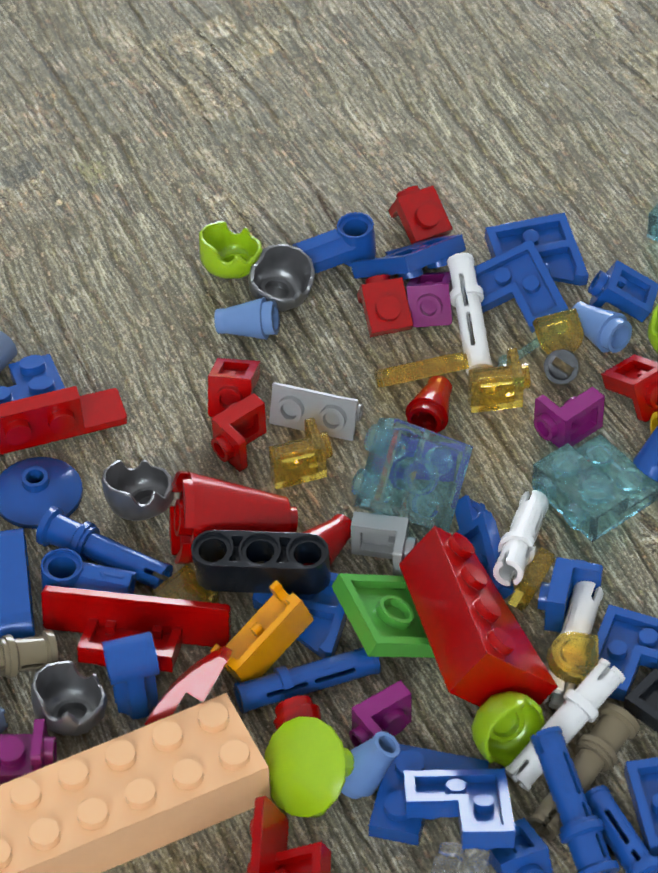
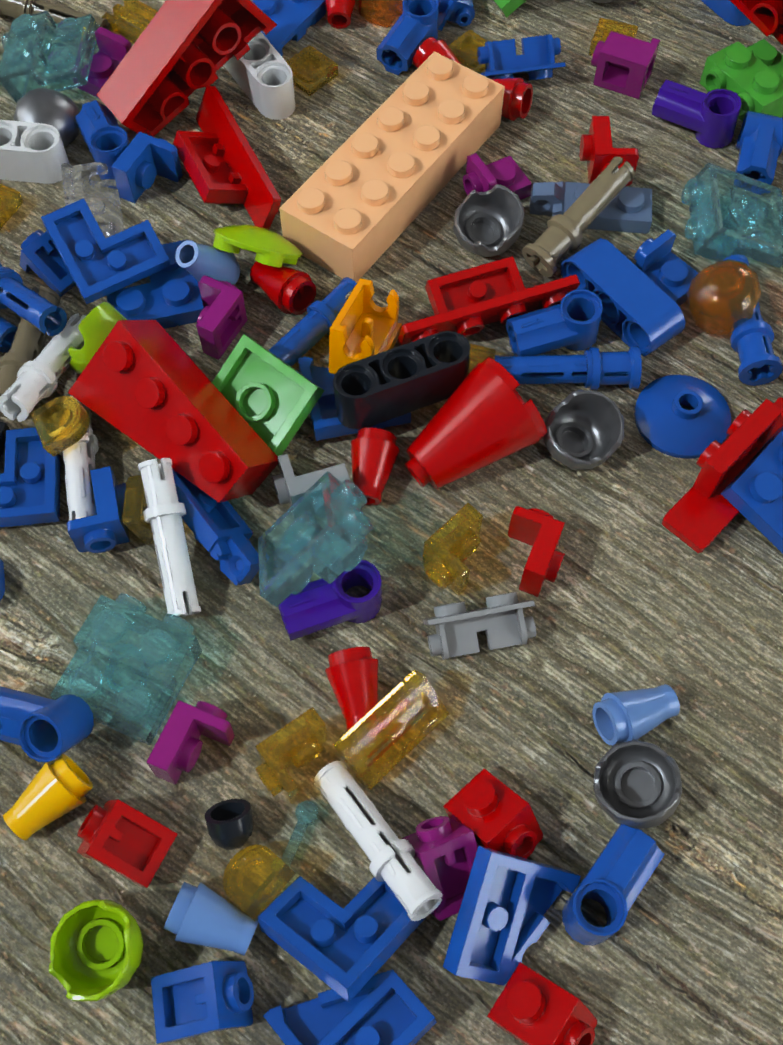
camera: 150 degrees right, 15 degrees up
(132, 672) = (445, 236): blue piece -> none
(194, 681) = (390, 253): slope -> none
(228, 253) = (732, 802): lime hair -> none
(230, 383) = (588, 611): red bracket -> none

